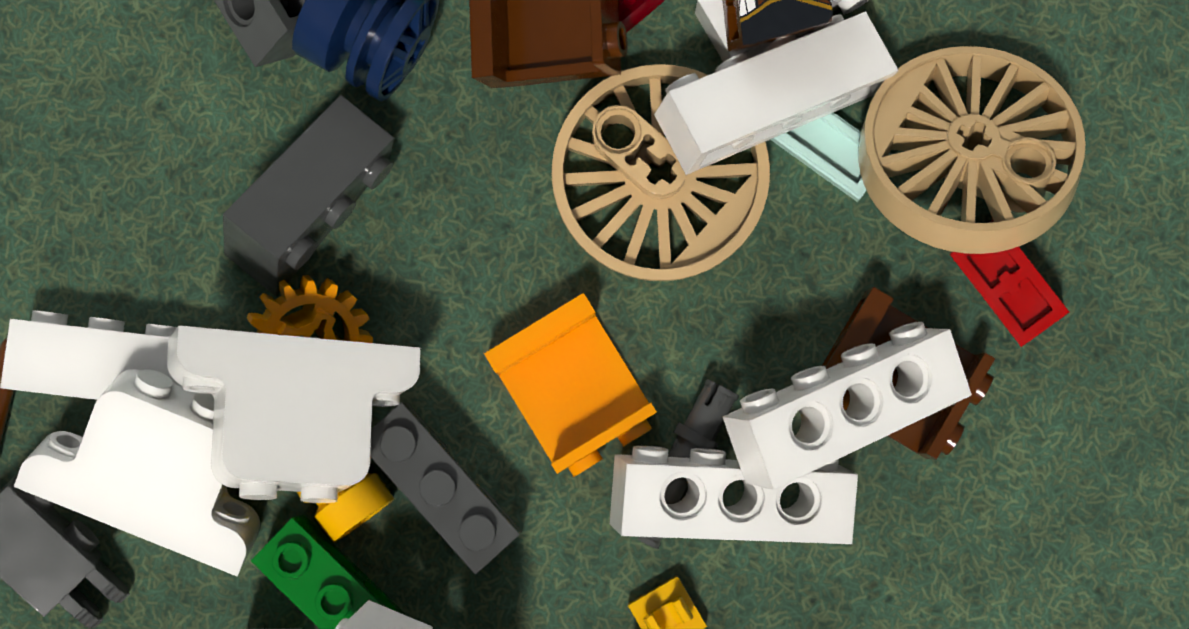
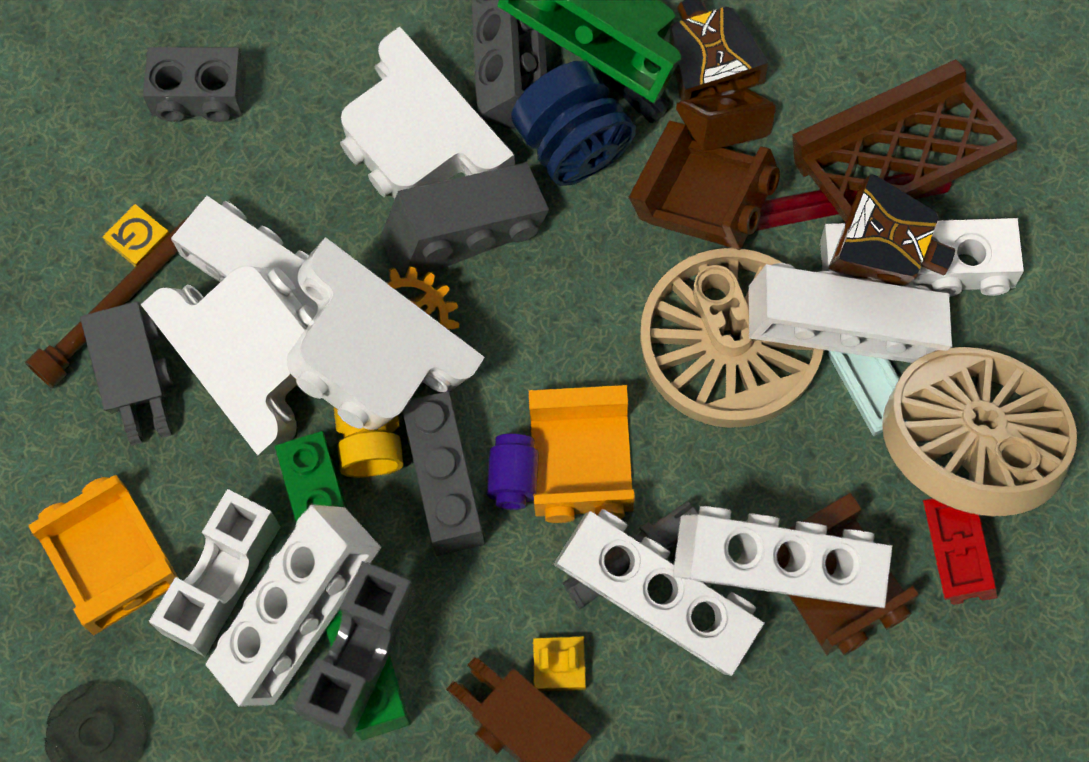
camera: 30 degrees right, 15 degrees down
(195, 112) = (416, 124): none -> white brick
(512, 443) = (512, 471): none -> dark purple brick

